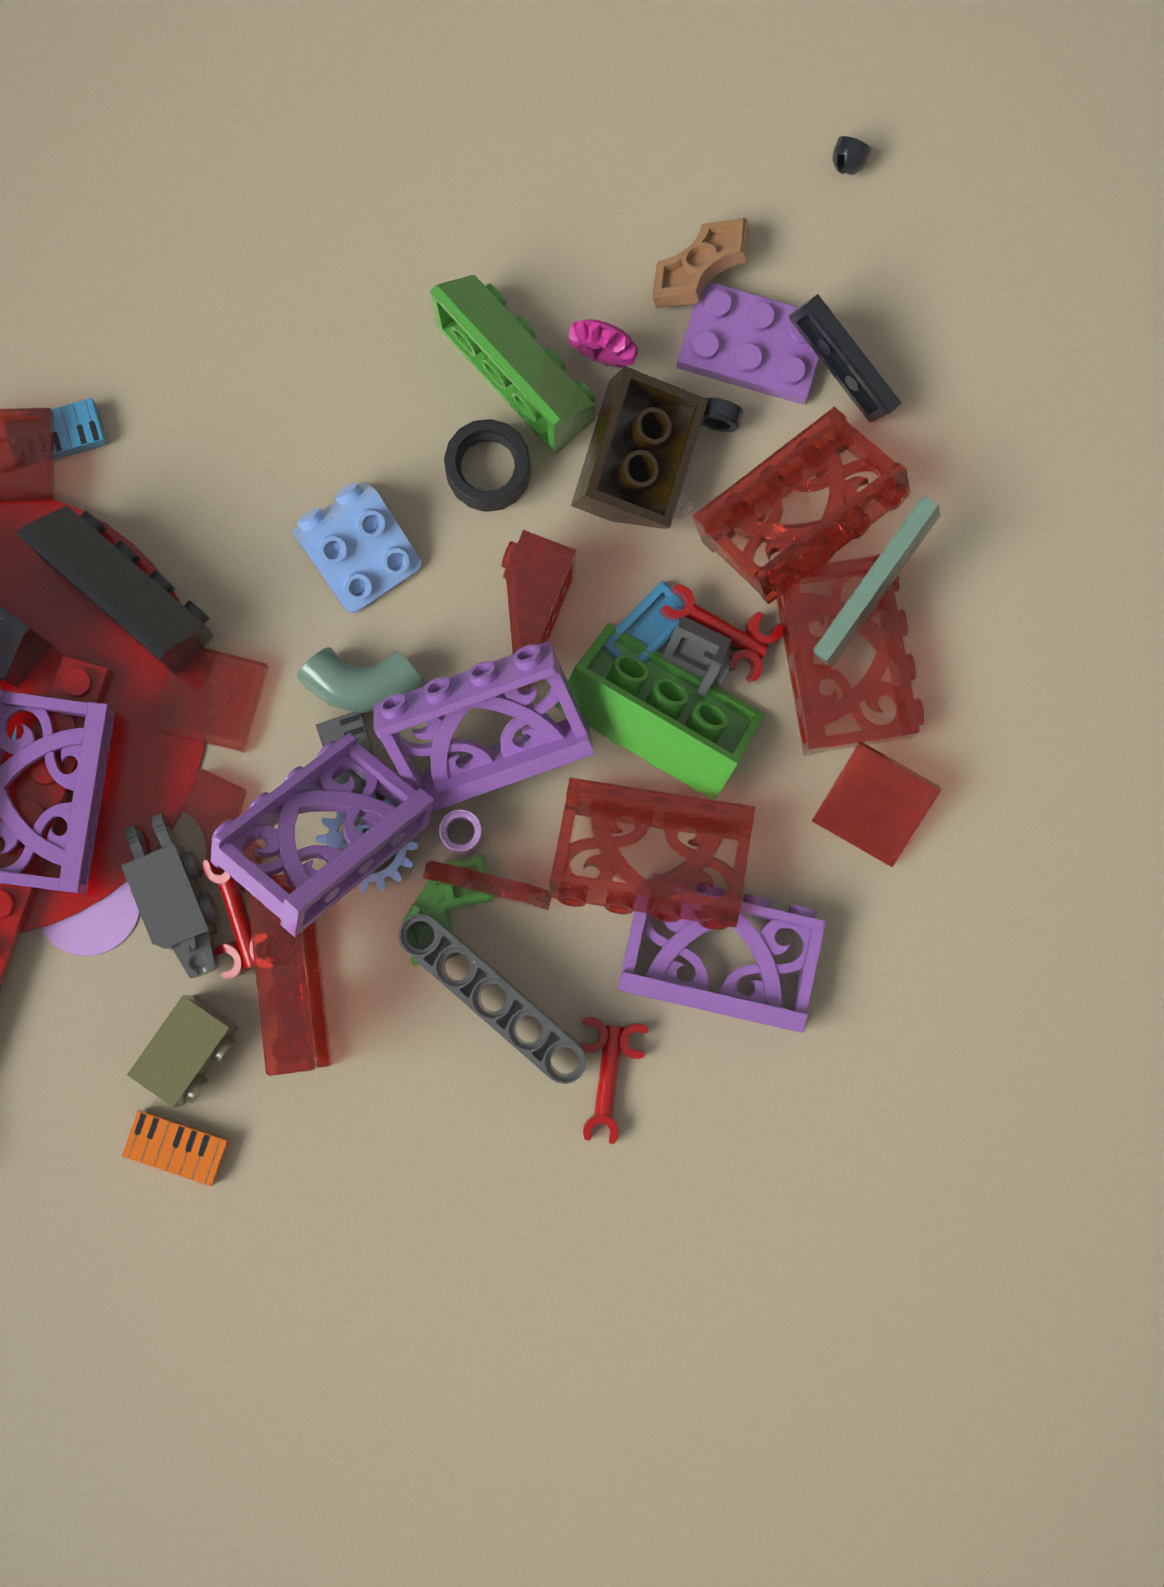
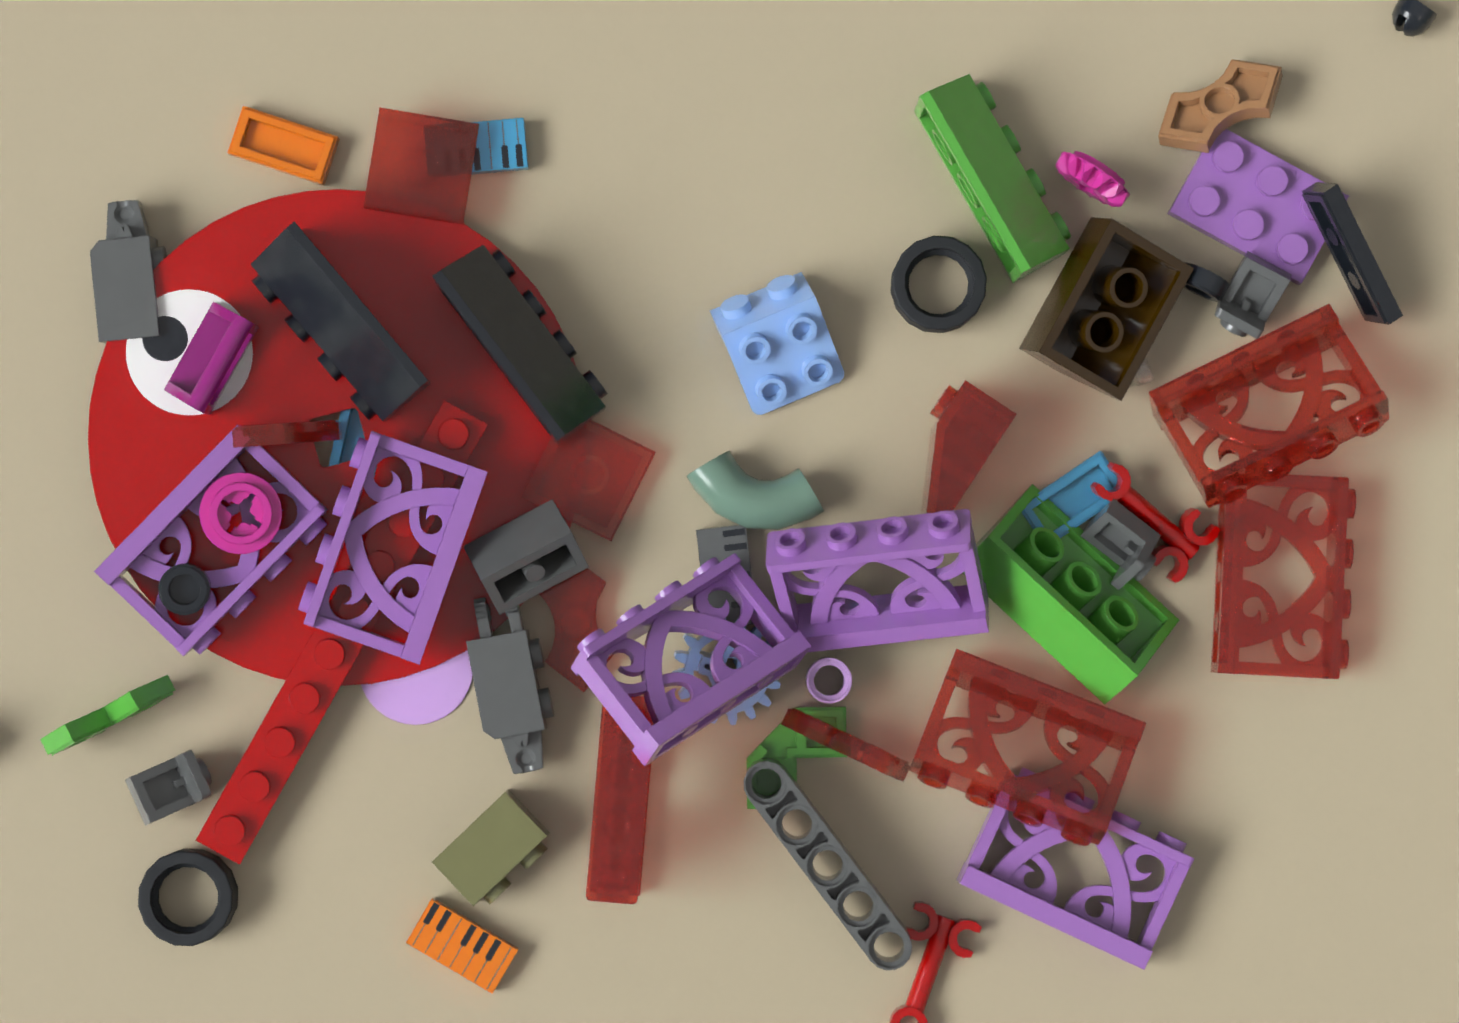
camera: 15 degrees right, 5 degrees up
(161, 778) = (526, 556): none -> dark grey brick
(242, 948) = (576, 755): red bar -> none
(765, 417) = (1251, 296): none -> dark grey bracket
(876, 804) = (1275, 743): clear red tile -> none
(877, 581) = (1329, 512): sand green tile -> none

